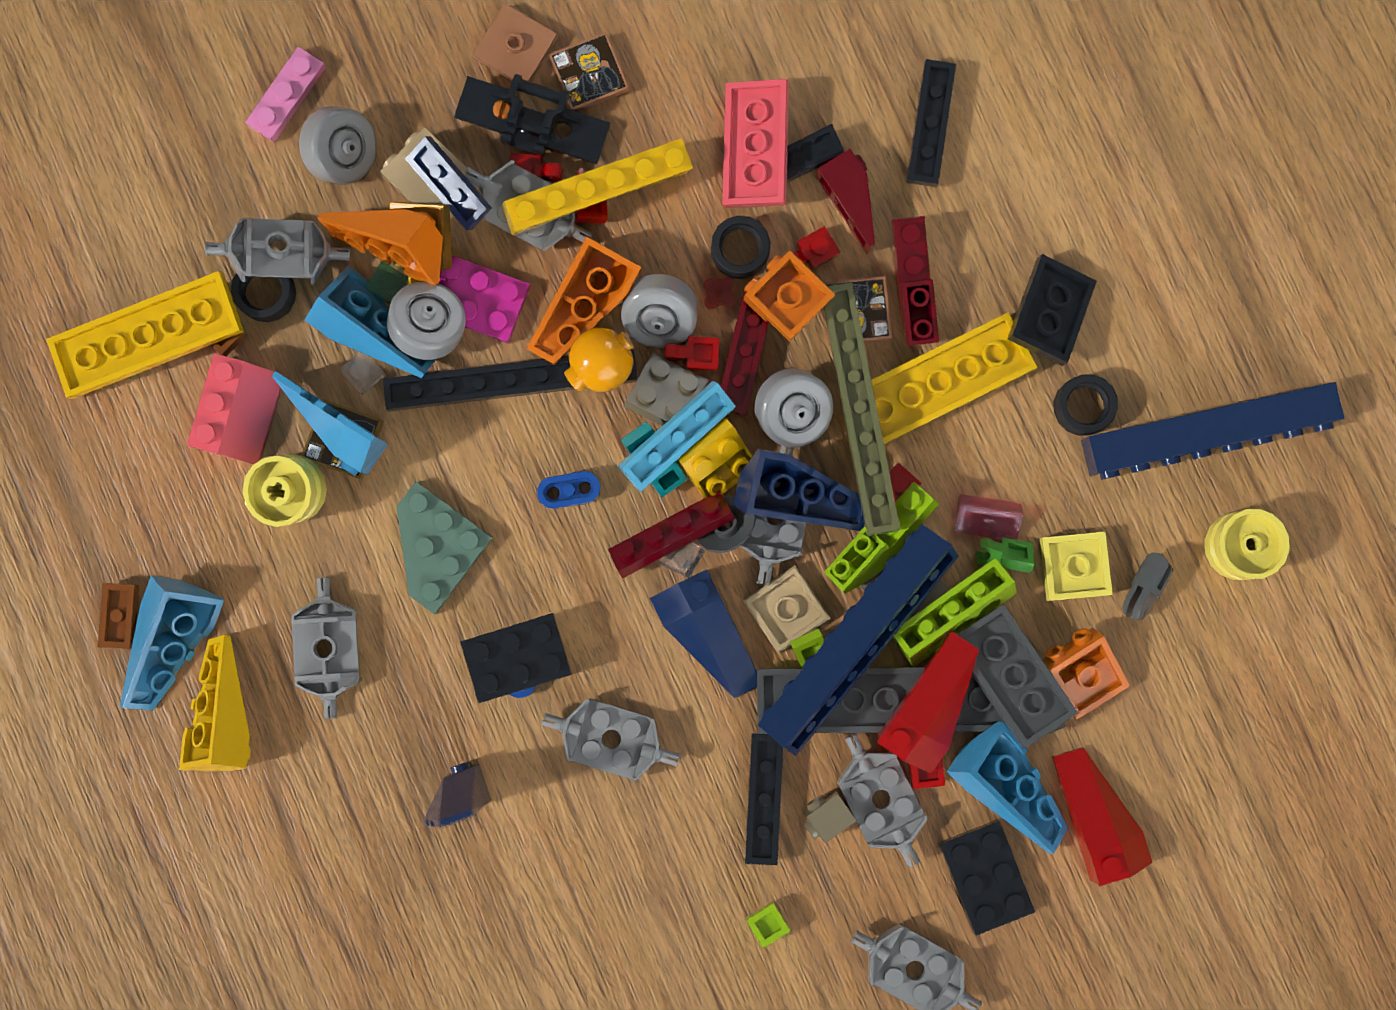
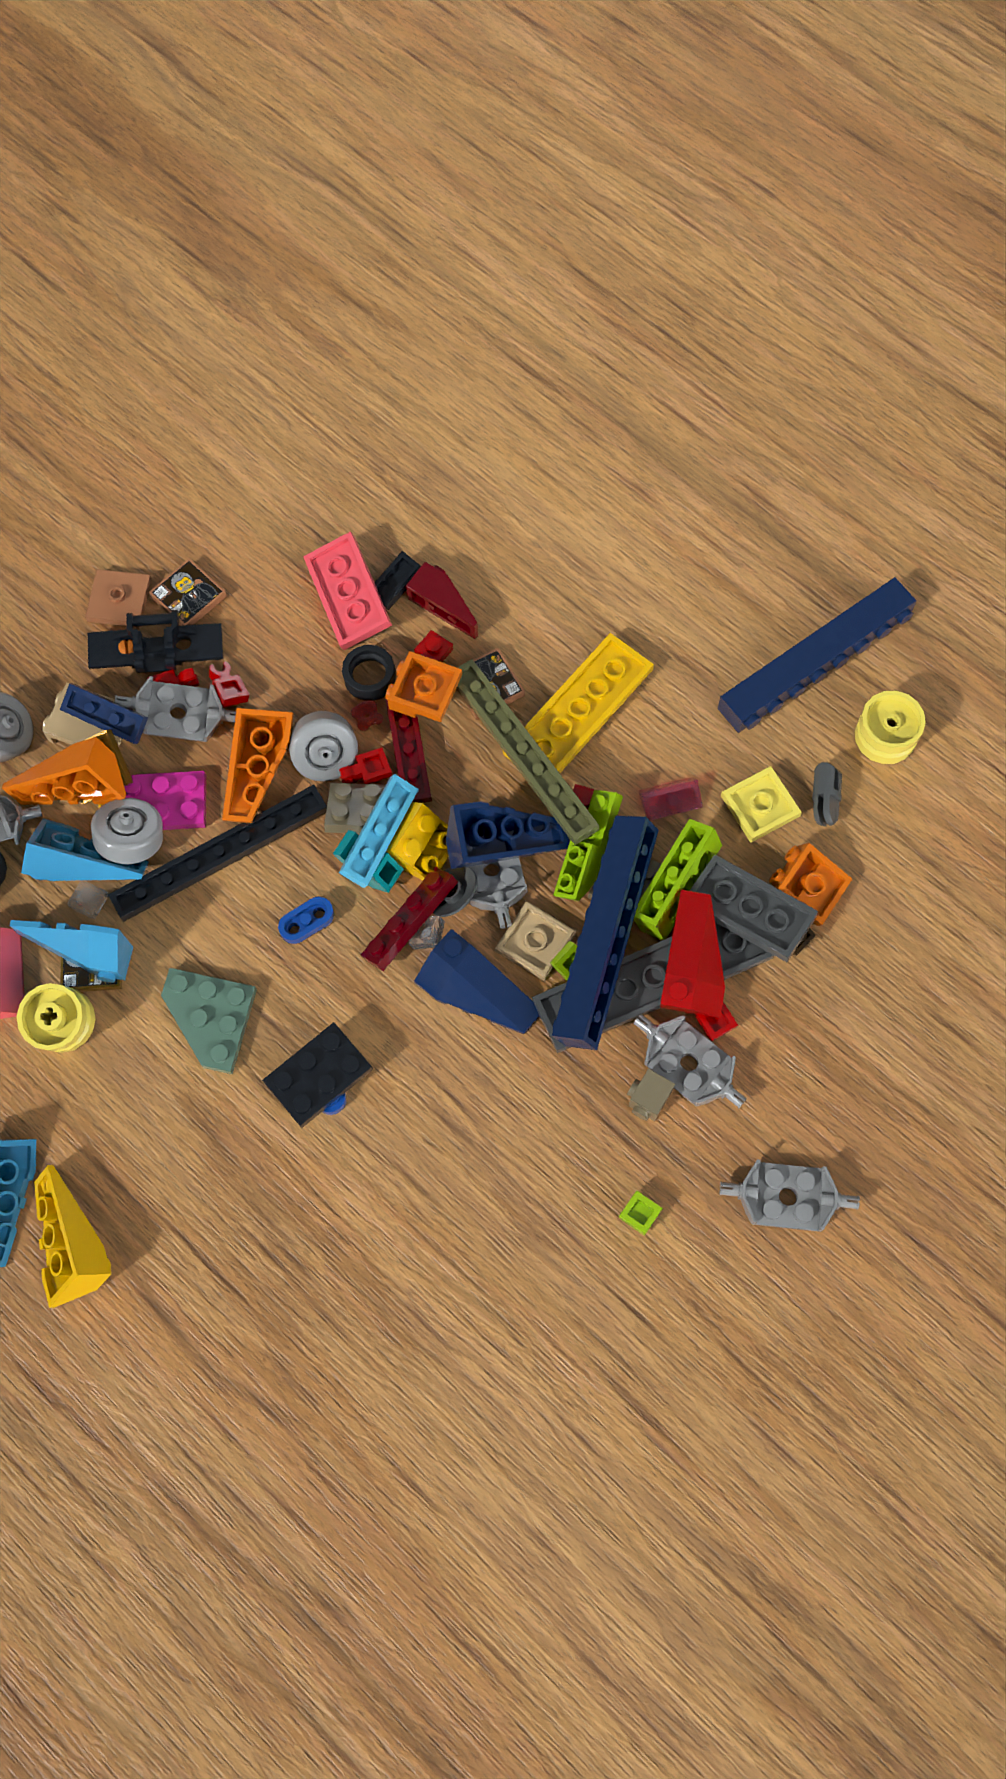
camera: 15 degrees left, 15 degrees down
(339, 670) = (161, 1159): light grey plate -> none
(386, 282) = (79, 817): clear green plate -> none
(458, 796) = (314, 1217): wedge -> none
(584, 742) = (407, 1103): light grey plate -> none
(596, 186) = (195, 694): yellow arch -> none
(600, 360) = (288, 797): light orange brick -> none
(764, 800) = (588, 1106): black plate -> none
(793, 407) = (468, 772): light grey wheel -> none
(914, 281) = (522, 641): dark red slope -> none
(931, 123) = (482, 522): black plate -> none
(986, 877) = (811, 1090): black plate -> none
(1002, 779) = (784, 1000): dark azure wedge -> none
(1010, 553) = (708, 814): bright green plate -> none
(1052, 310) = (644, 616): black plate -> none
(1104, 828) = (888, 1004): red wedge -> none
(1107, 394) = (706, 658): black tyre -> none

